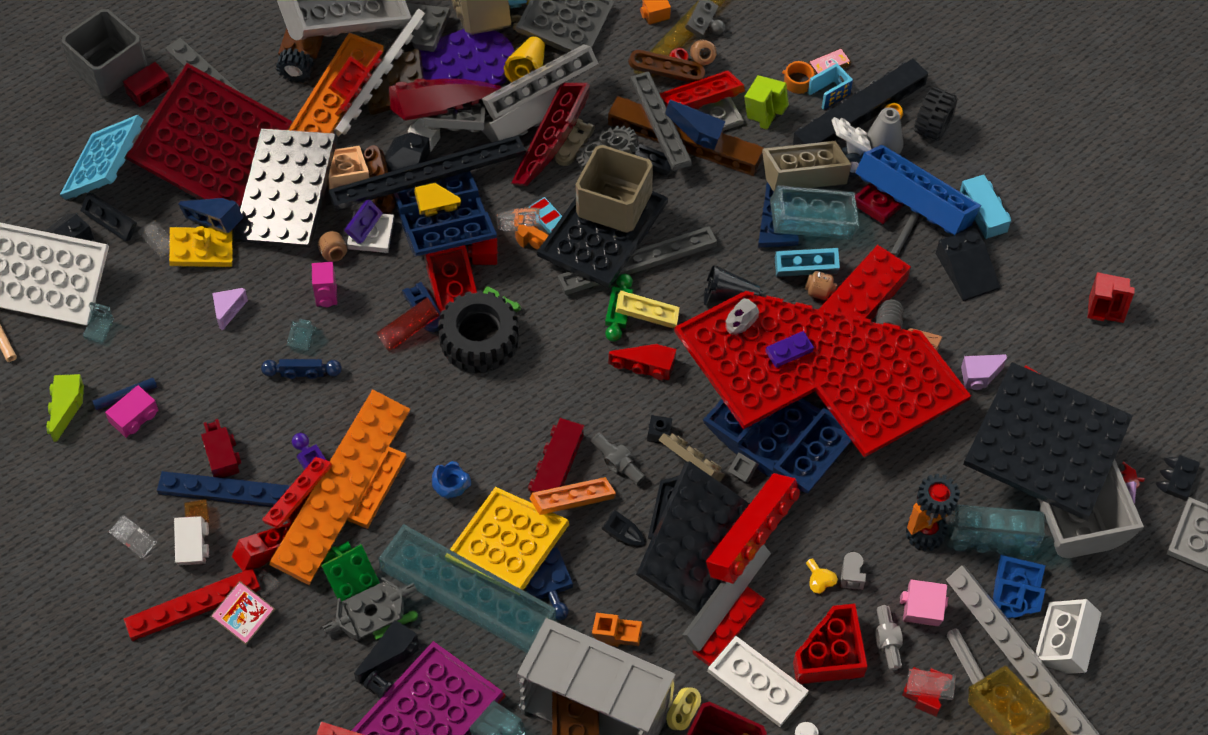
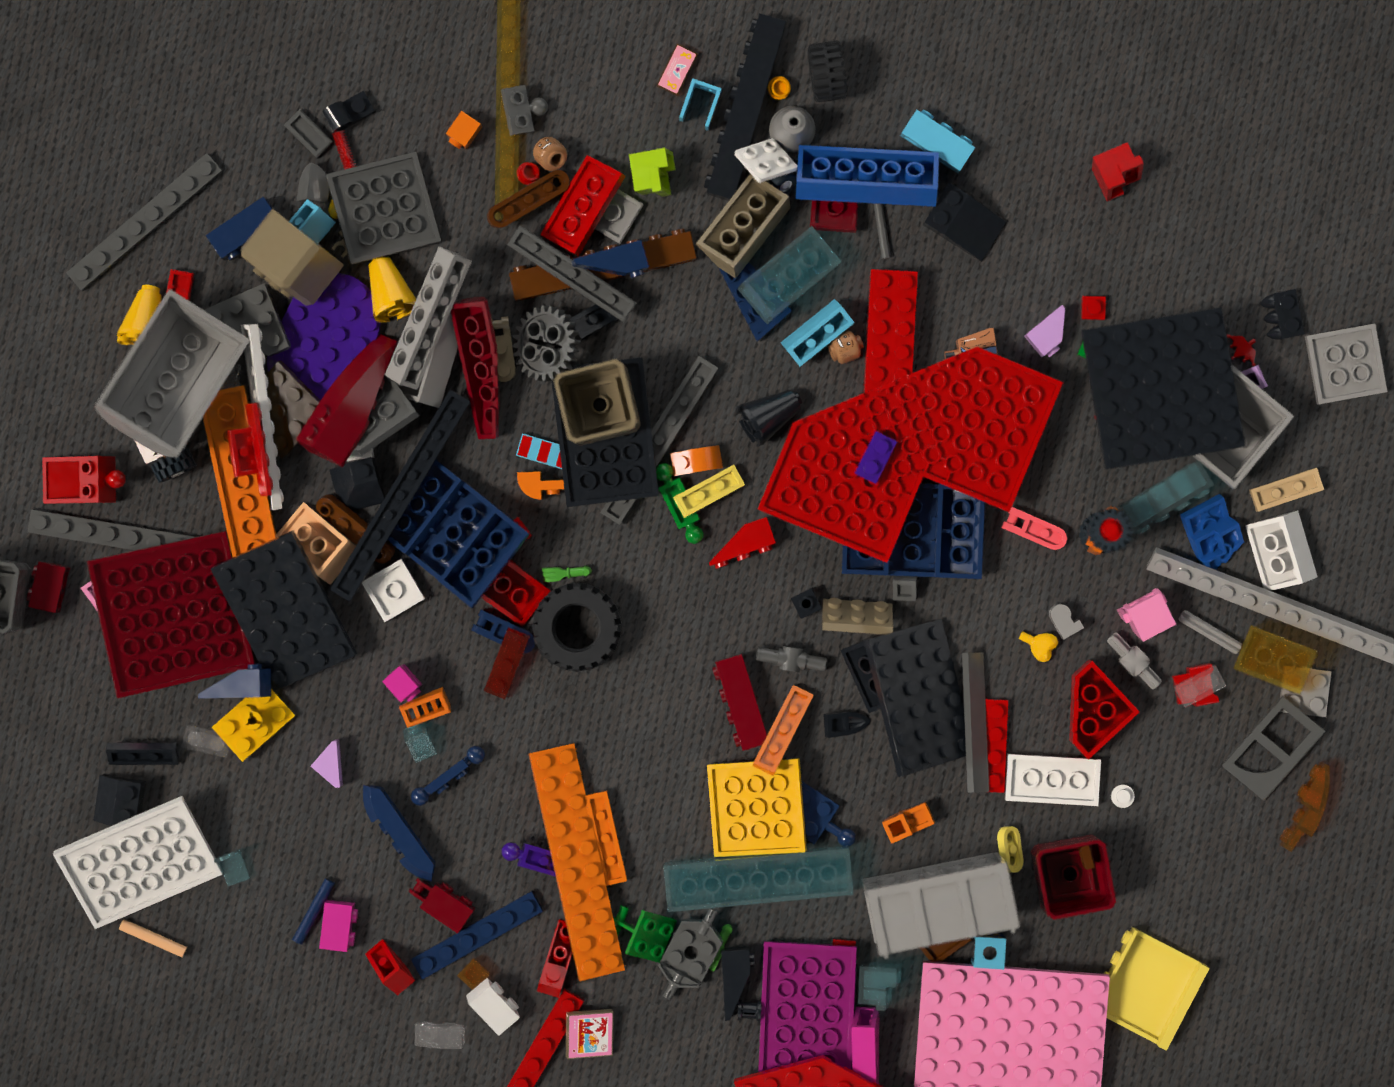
camera: 40 degrees left, 30 degrees up
(66, 400) = (271, 958): lime slope -> none
(102, 157) = (89, 708): medium azure plate -> none
(141, 466) = (389, 967): none -> red slope
(228, 41) = (81, 479): none -> red slope
(234, 371) = (381, 807): none -> dark blue brick
(295, 497) = (549, 902): red bracket -> none
(332, 246) = (372, 633): medium nougat head -> none
(340, 325) = (422, 700): none -> orange slope
(363, 221) = (384, 592): dark purple plate -> none
(435, 198) = (433, 524): yellow slope -> none
(450, 480) = (666, 789): blue hair -> none
(513, 218) = (521, 495): clear slope -> none
(656, 287) = (696, 460): none -> orange brick
(742, 316) = (812, 459): light grey rock -> none
(753, 528) = (959, 649): red brick -> none
(798, 67) = (661, 97): orange piece -> none
(876, 494) = (1035, 530): none -> coral plate
(890, 312) = (933, 341): dark grey piece -> none
(1102, 595) = (1286, 489): none -> tan plate

